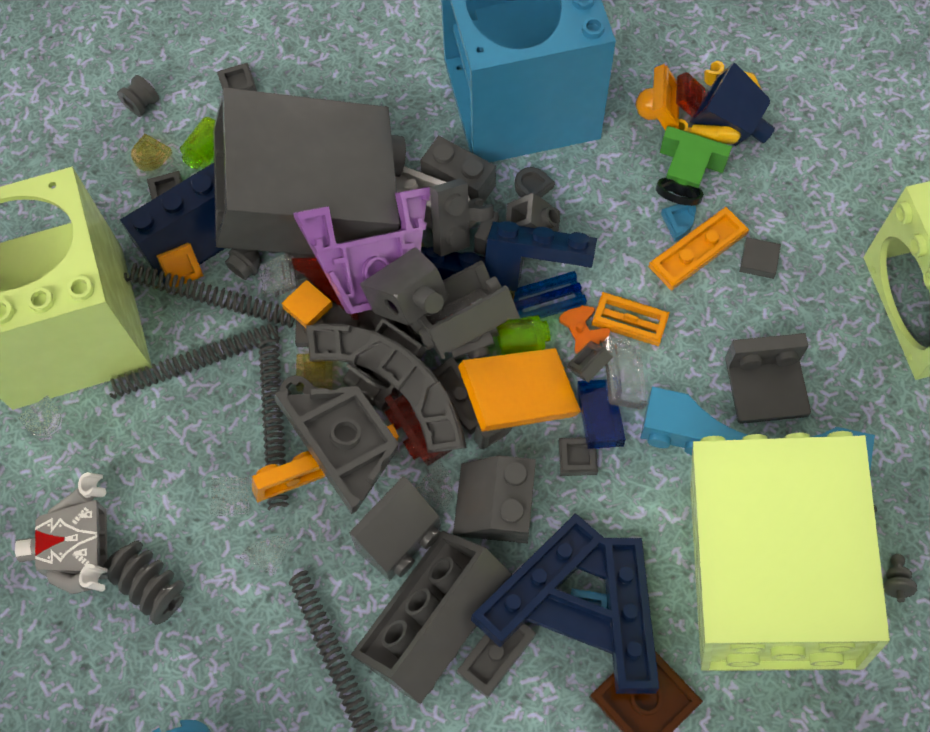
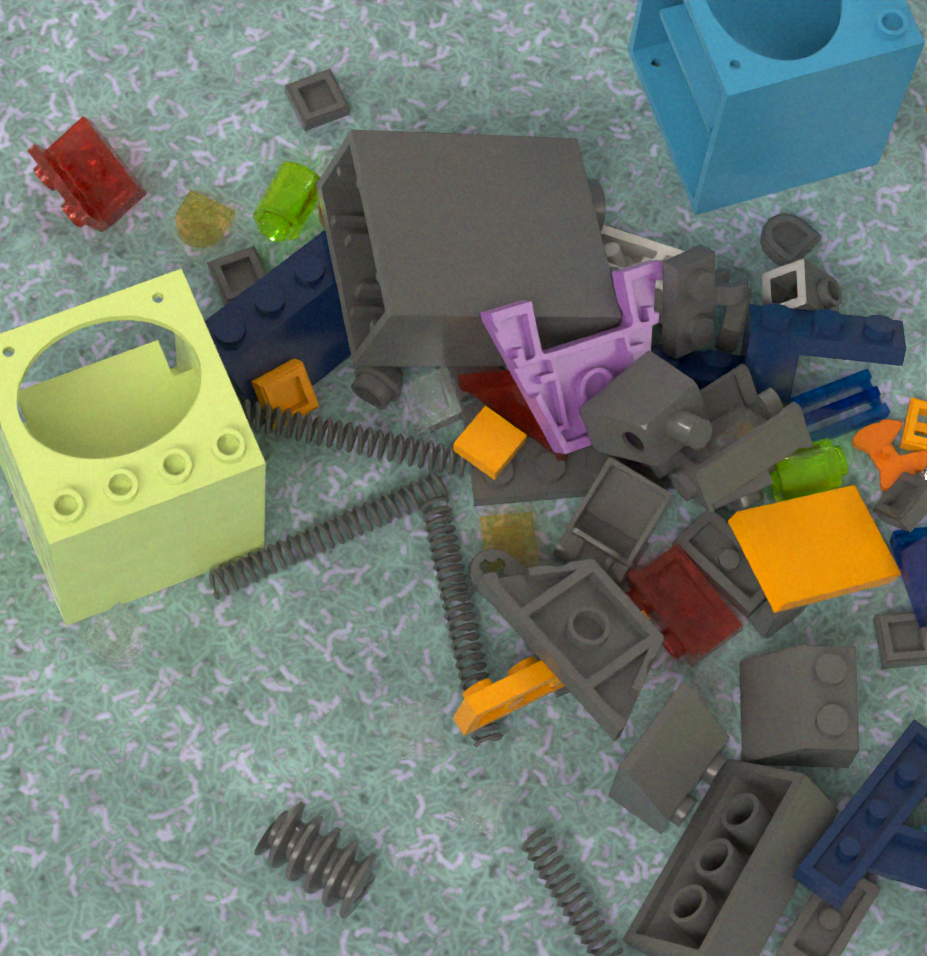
camera: 15 degrees left, 0 degrees up
(71, 540) = (202, 810): light grey torso -> none
(78, 122) = (87, 176): none -> clear red bracket
(138, 95) = (172, 130): dark grey wheel -> none
(399, 367) = (644, 528): dark grey tile -> none
(450, 162) = (681, 220): dark grey brick -> none

